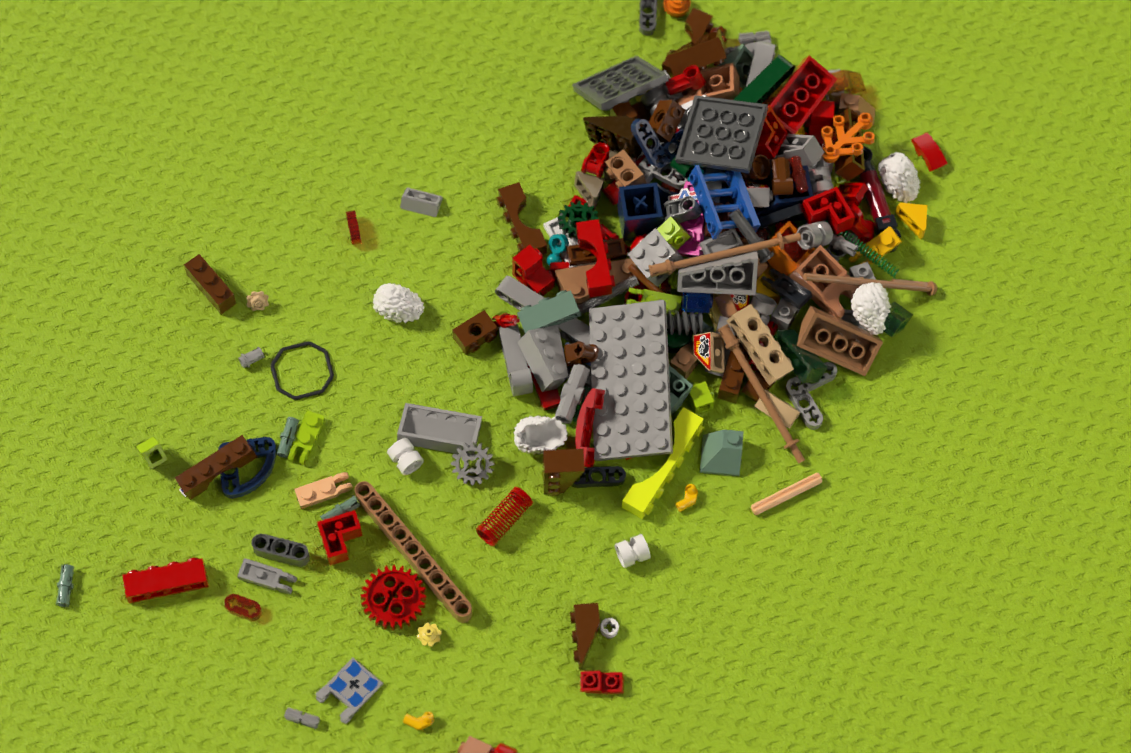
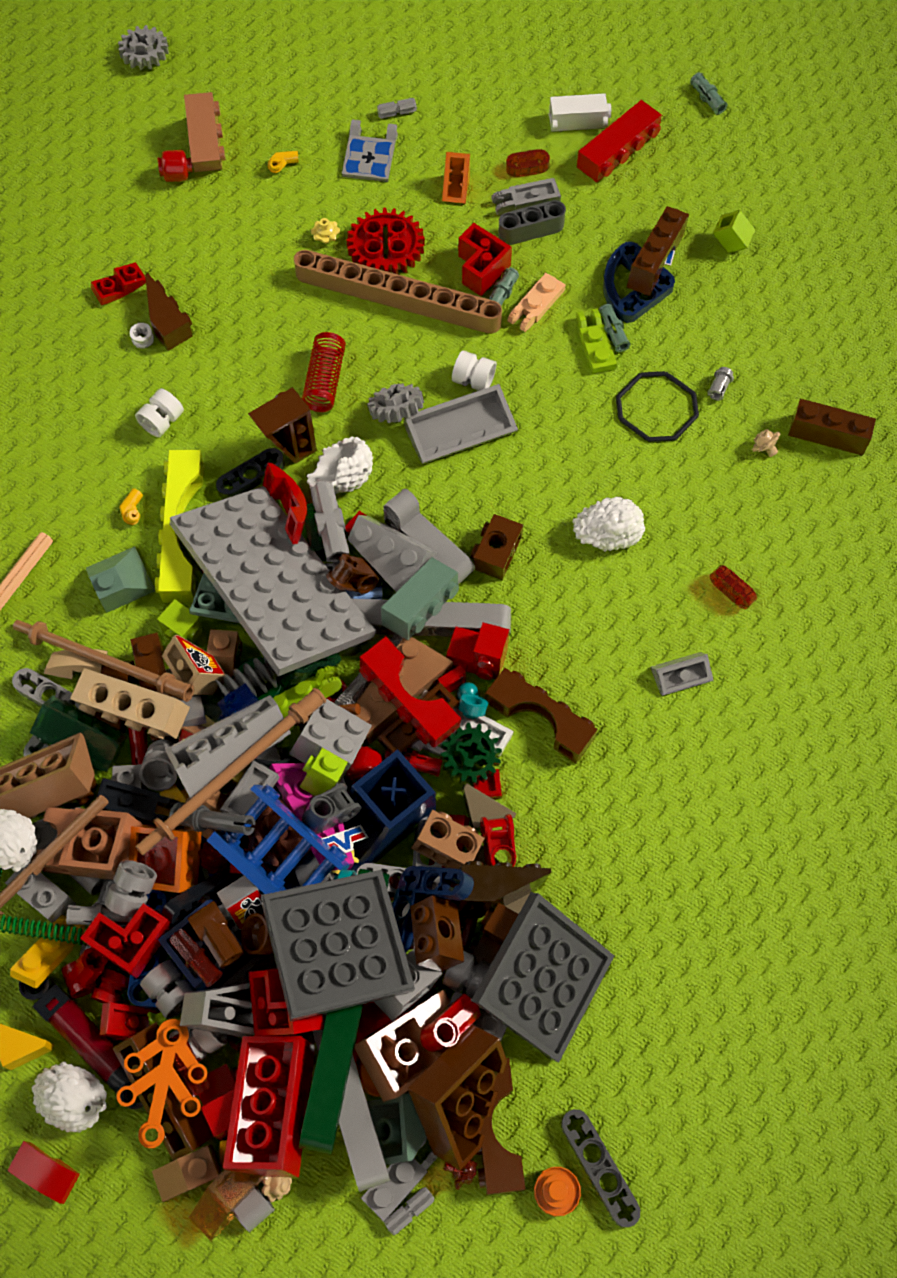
camera: 150 degrees right, 0 degrees up
(174, 623) = (579, 112): none -> white brick
(307, 619) = (456, 177): none -> orange slope
(505, 320) = (470, 572): red axle -> none

